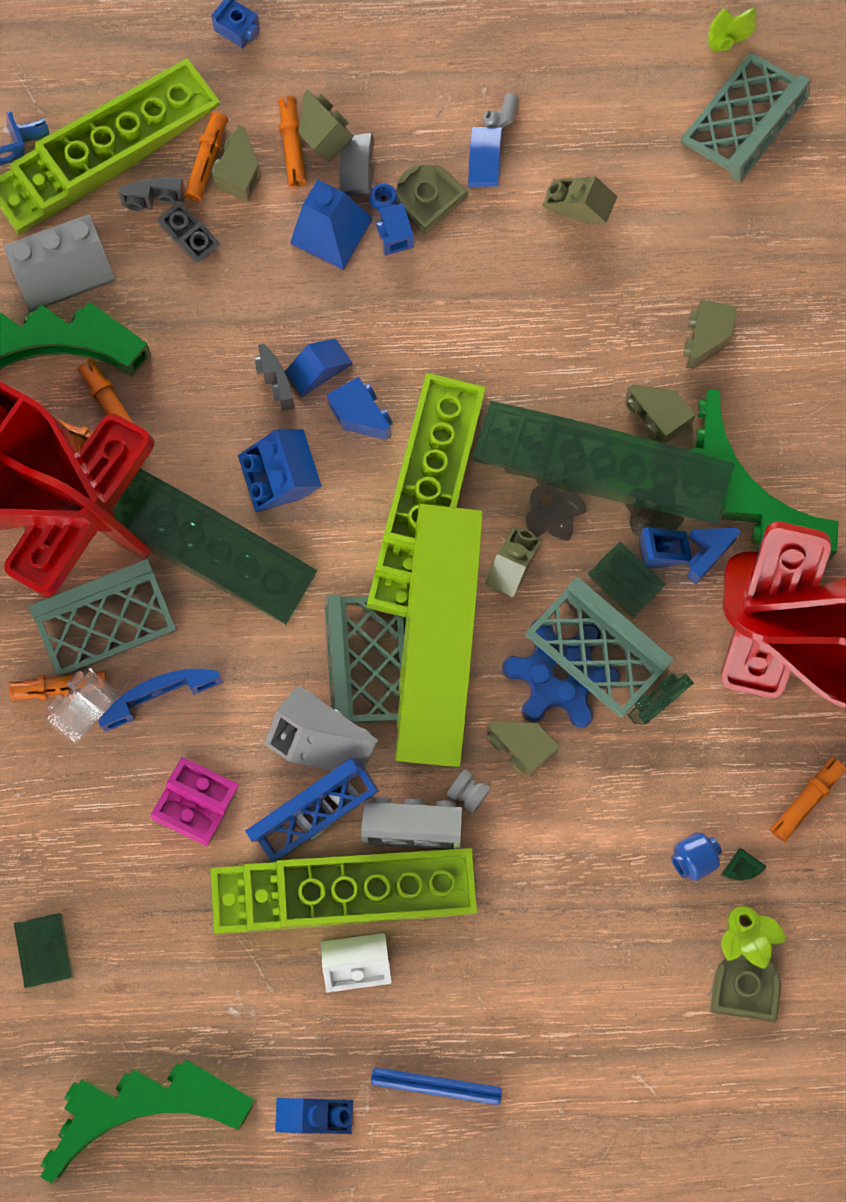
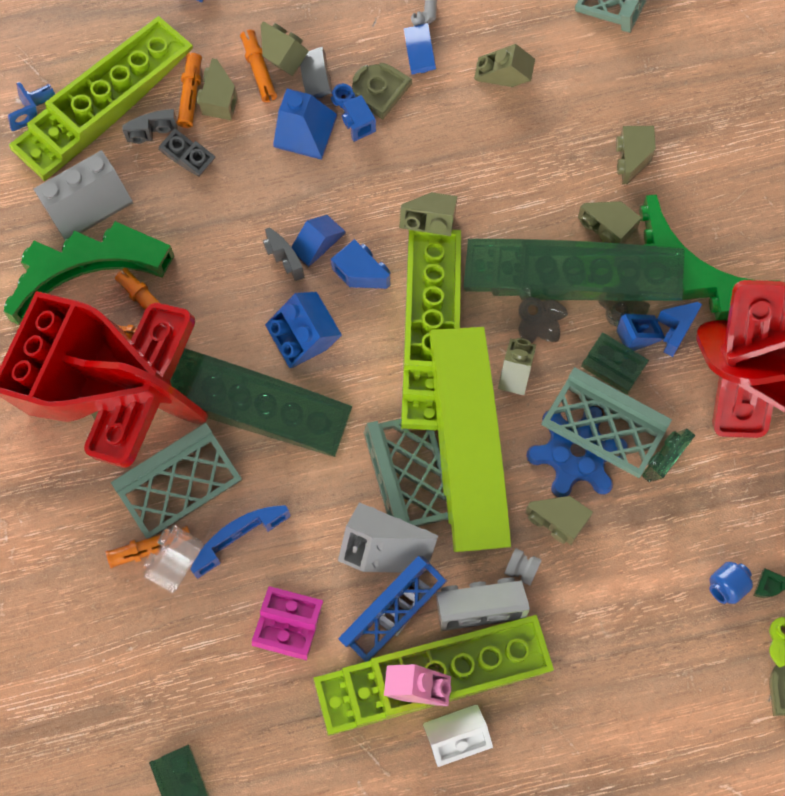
camera: 10 degrees left, 5 degrees down
(320, 900) = (417, 685): none -> bright pink slope
(452, 362) = (429, 214): none -> olive slope

